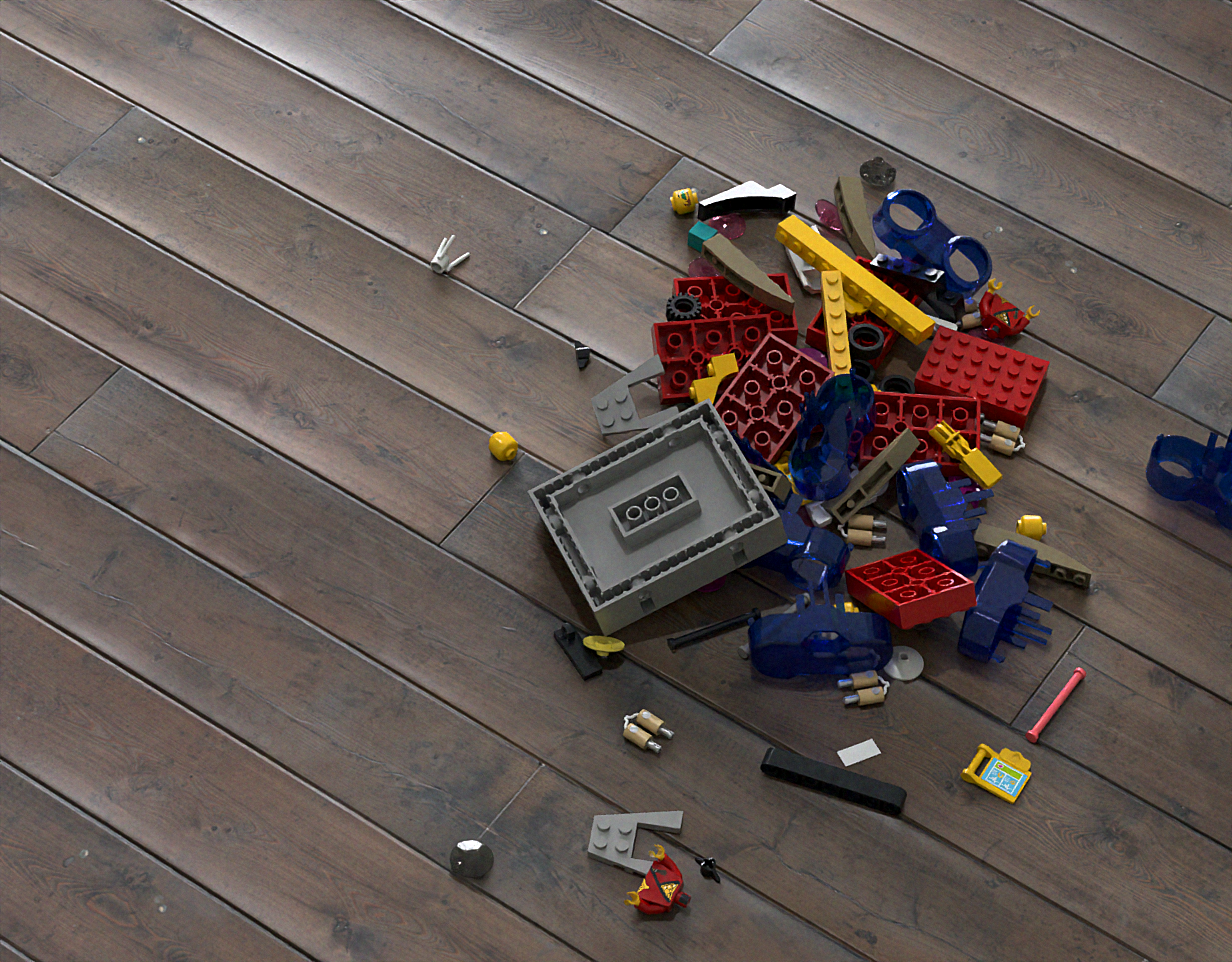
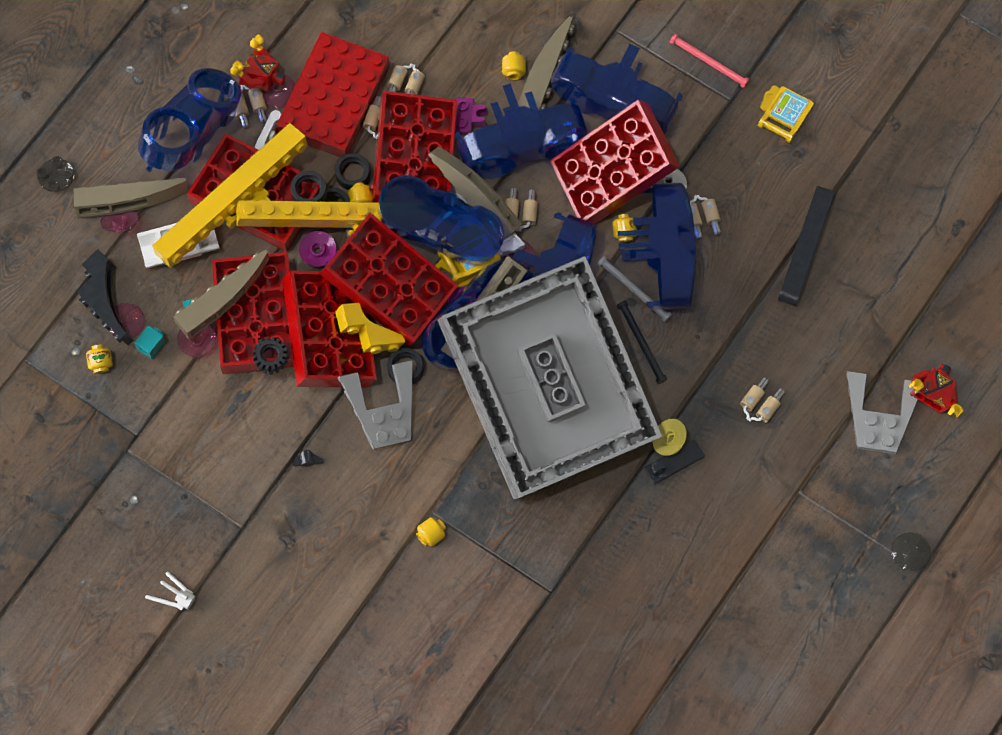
camera: 85 degrees left, 20 degrees up
(708, 867) = (903, 352): black piece -> none
(858, 752) = (768, 225): white sticker -> none
(925, 282) = (228, 136): black arch -> none
(973, 461) = (458, 103): yellow arm -> none

